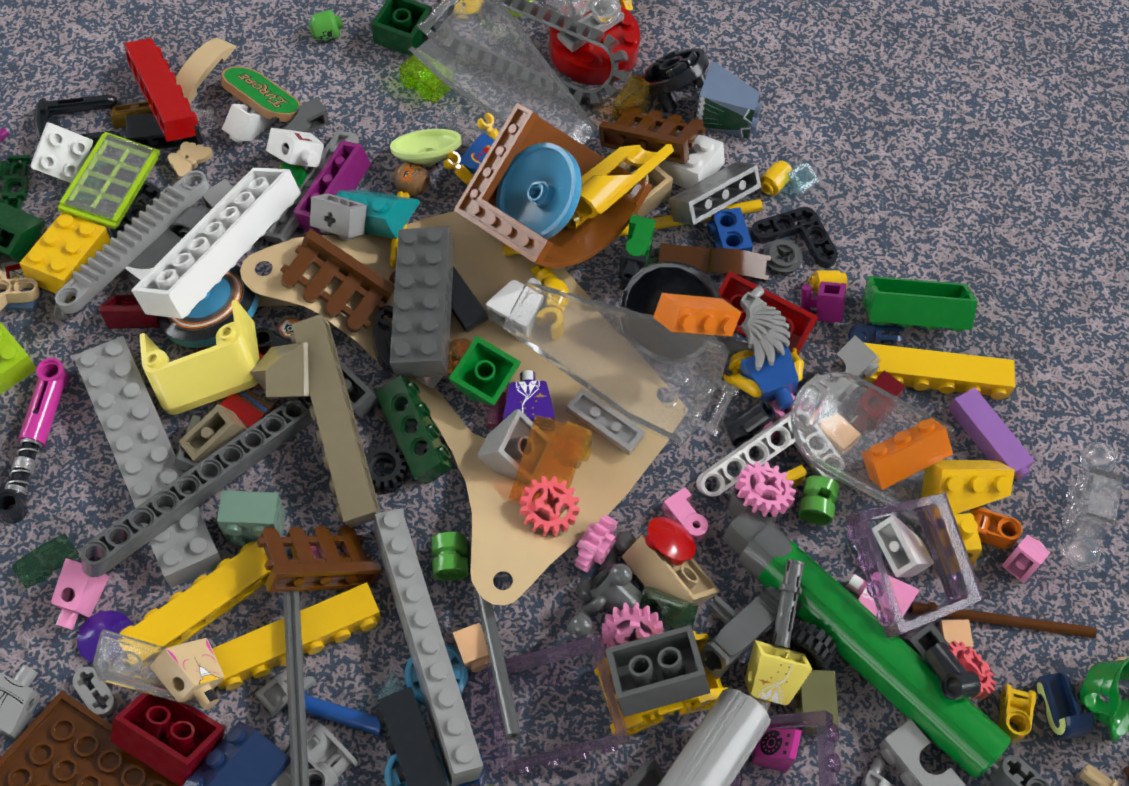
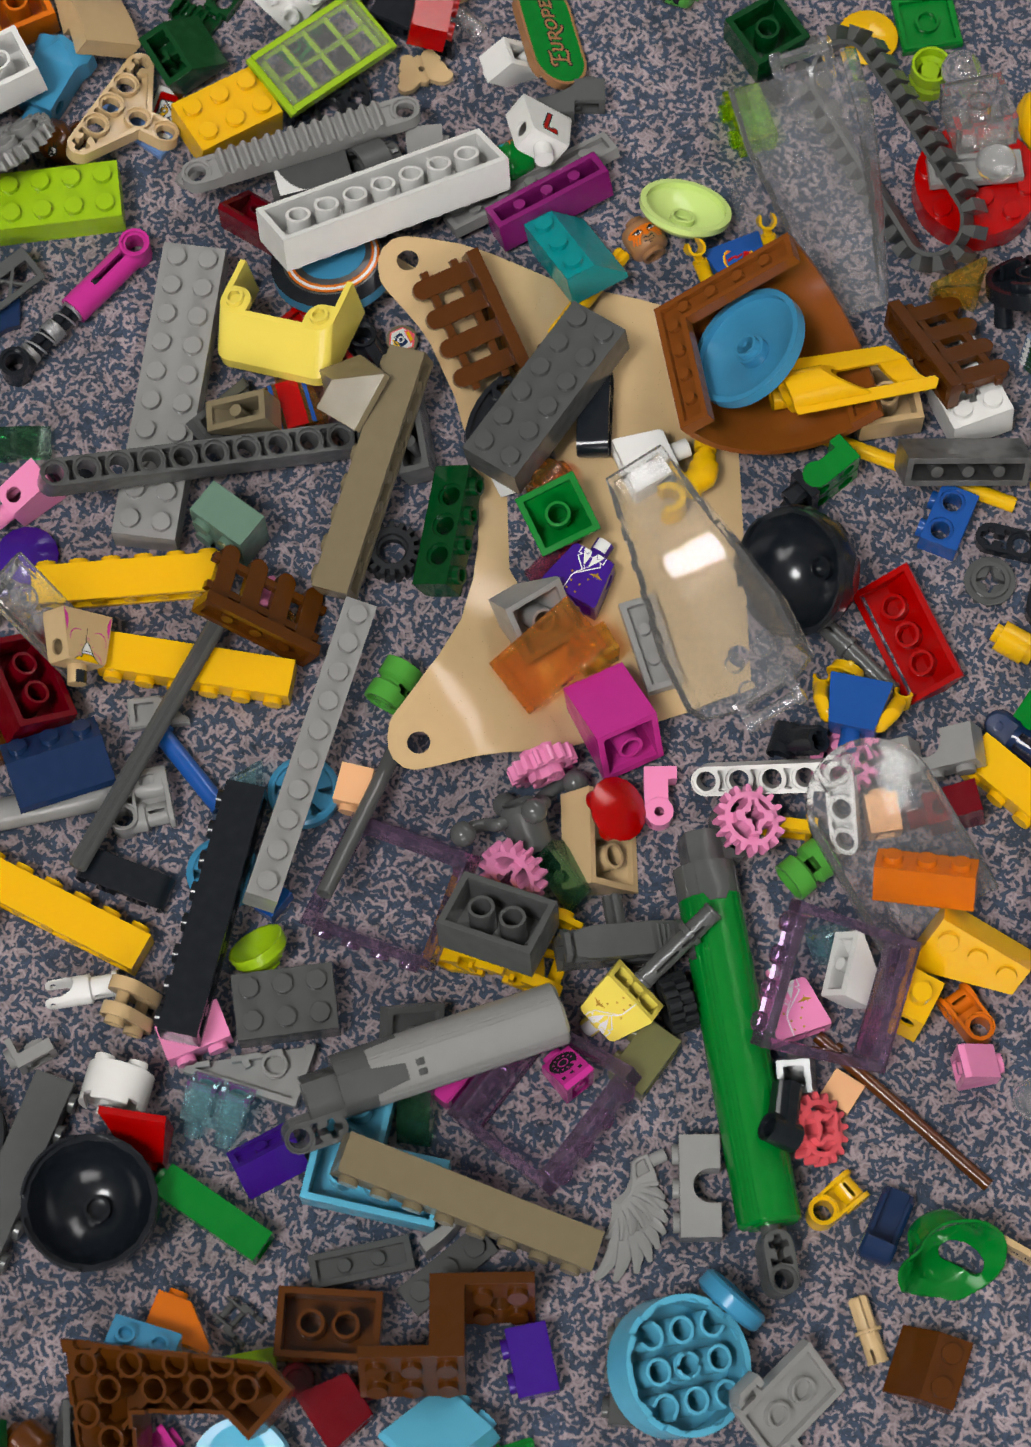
camera: 40 degrees right, 10 degrees up
(338, 216) = (524, 243): light grey brick -> none
(542, 515) = (529, 701): coral gear -> none
(622, 482) = (614, 721): none -> dark pink slope
(696, 314) = (795, 595): orange brick -> none
(718, 260) = (903, 540): reddish brown piece -> none
(763, 328) = (884, 650): light grey animal -> none
(828, 301) = (992, 664): magenta brick -> none

